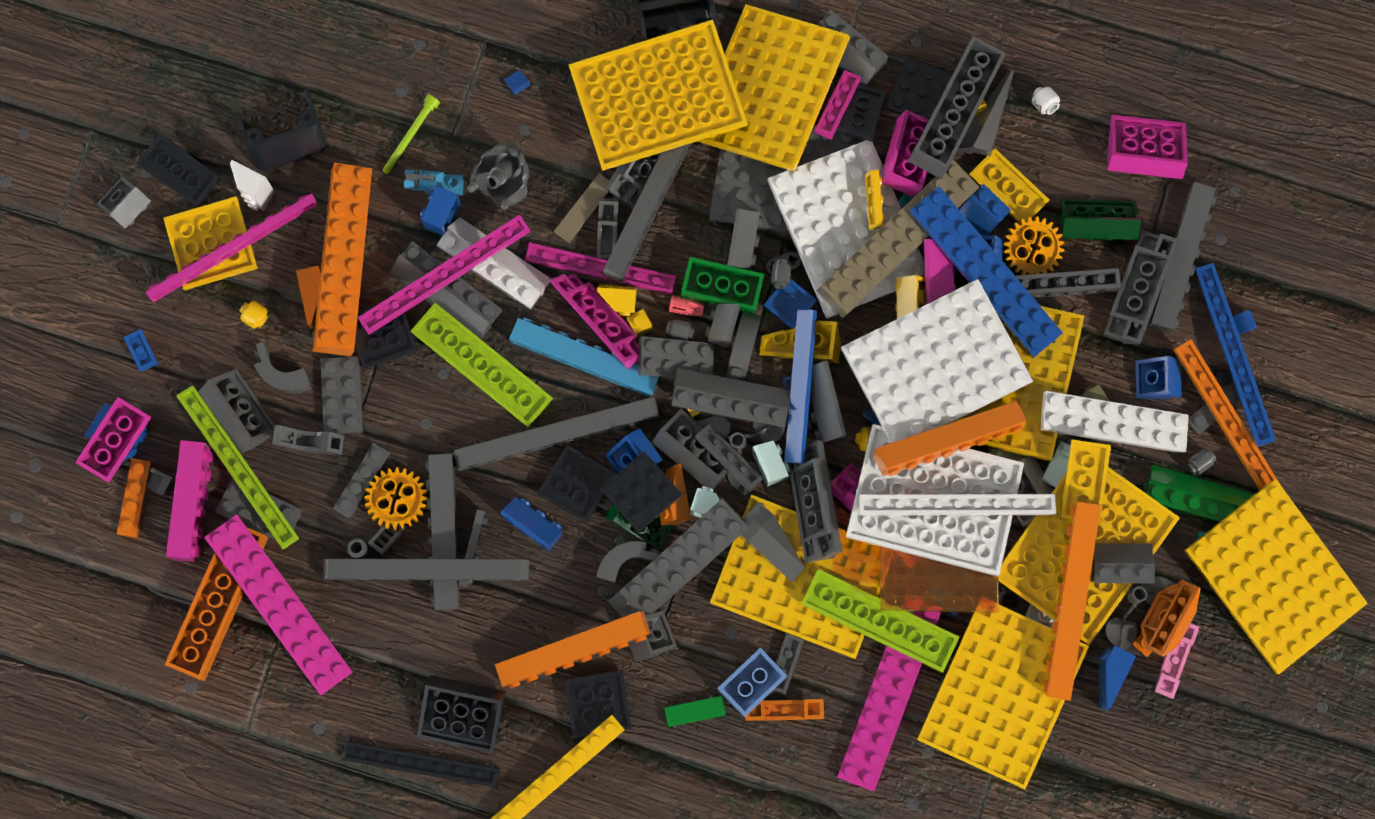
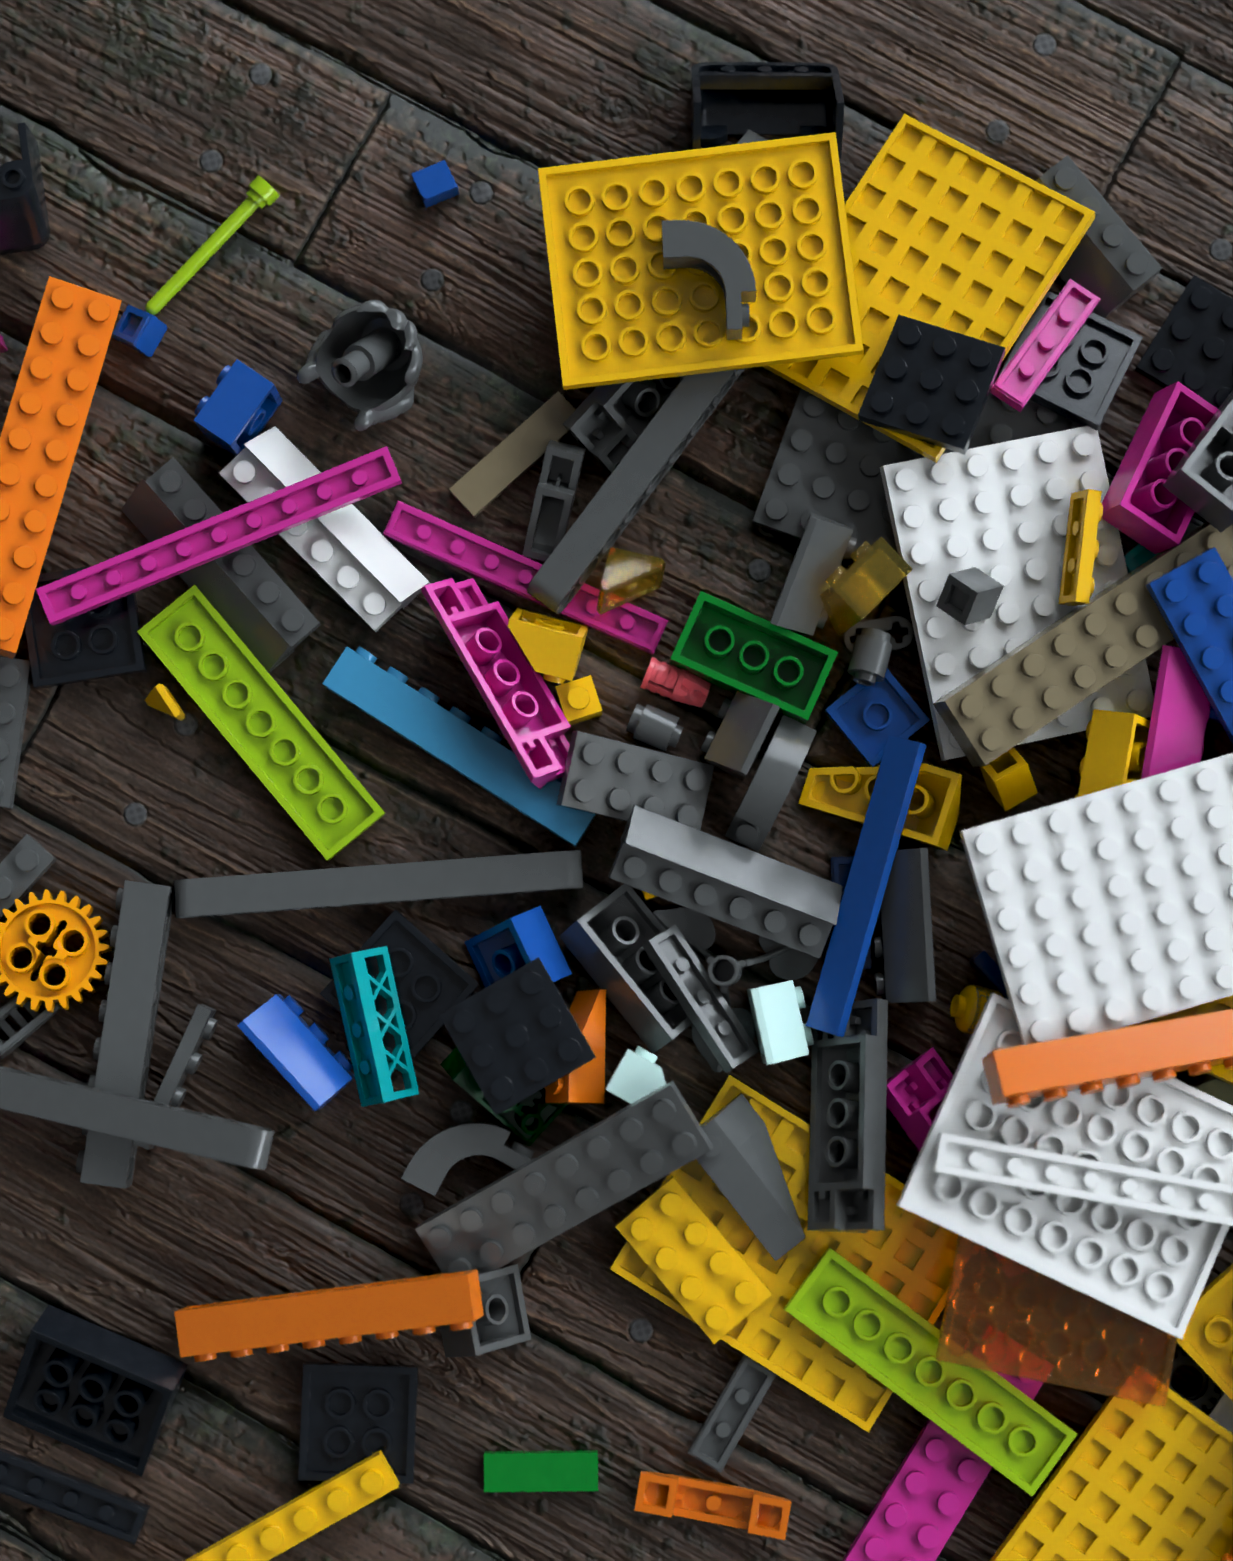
camera: 10 degrees right, 5 degrees up
(382, 182) = (139, 330): none -> blue slope
(428, 180) = (226, 343): dark azure plate -> none
(430, 364) = (163, 700): none -> yellow slope
(564, 504) = (367, 1027): none -> teal fence
(652, 258) = (628, 577): none -> clear yellow slope
(664, 89) = (710, 250): none -> dark grey arch
(750, 589) = (693, 1260): none -> yellow plate
(752, 682) = (659, 1441): medium blue slope -> none
(769, 238) = (863, 584): none -> clear yellow slope
(784, 133) = (931, 384): none -> black plate
(823, 233) = (969, 595): none -> dark grey panel
(861, 320) = (1009, 779): none -> yellow brick

